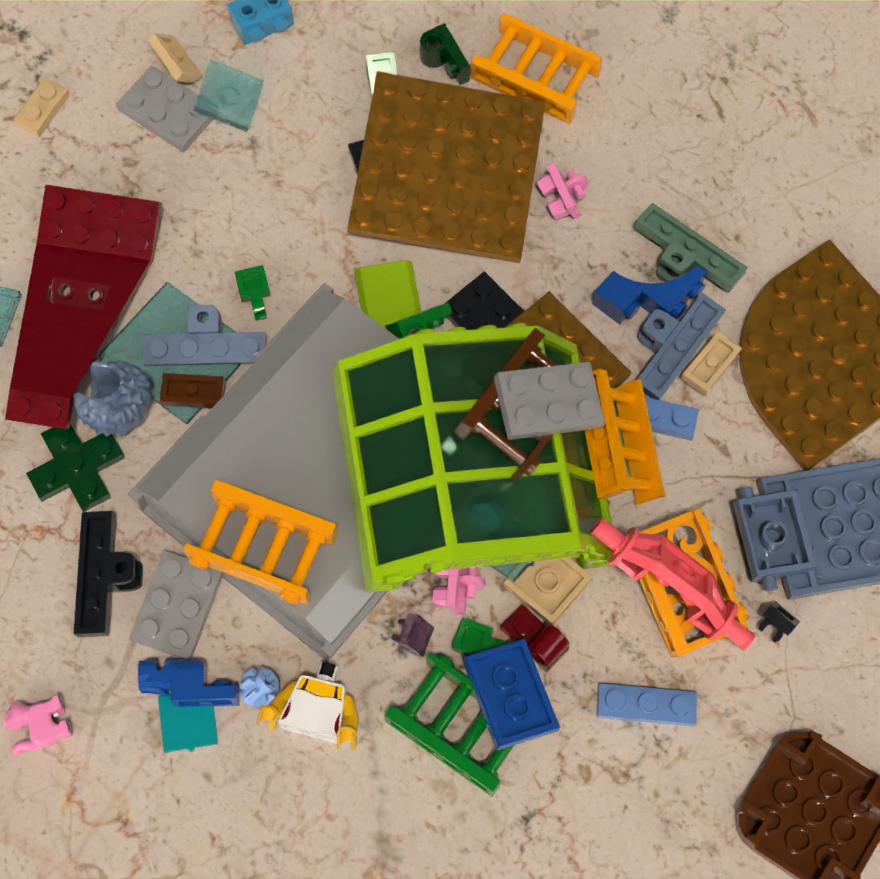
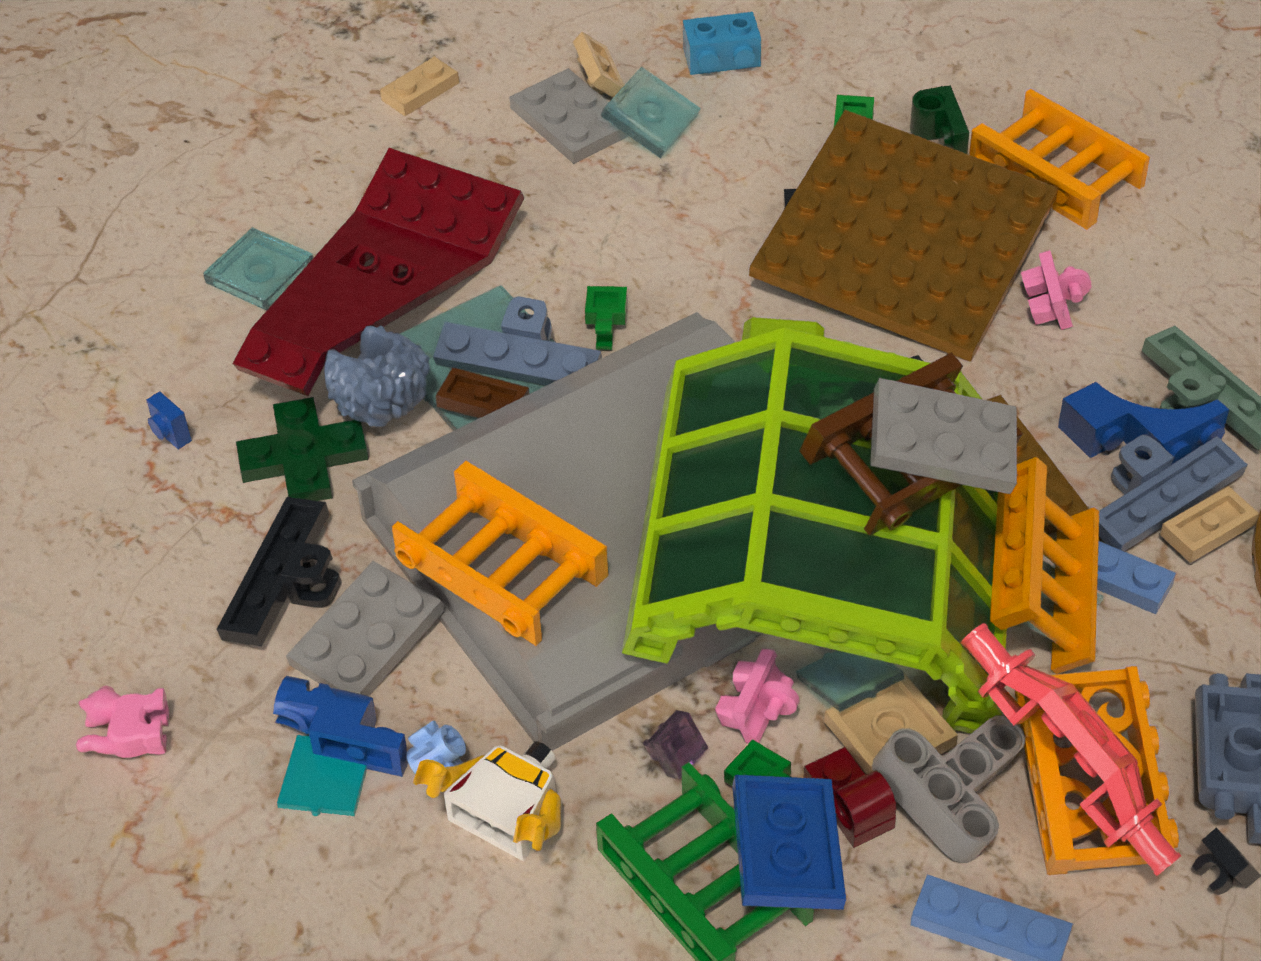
camera: 20 degrees right, 20 degrees down
(600, 618) = (957, 804): none -> light grey beam

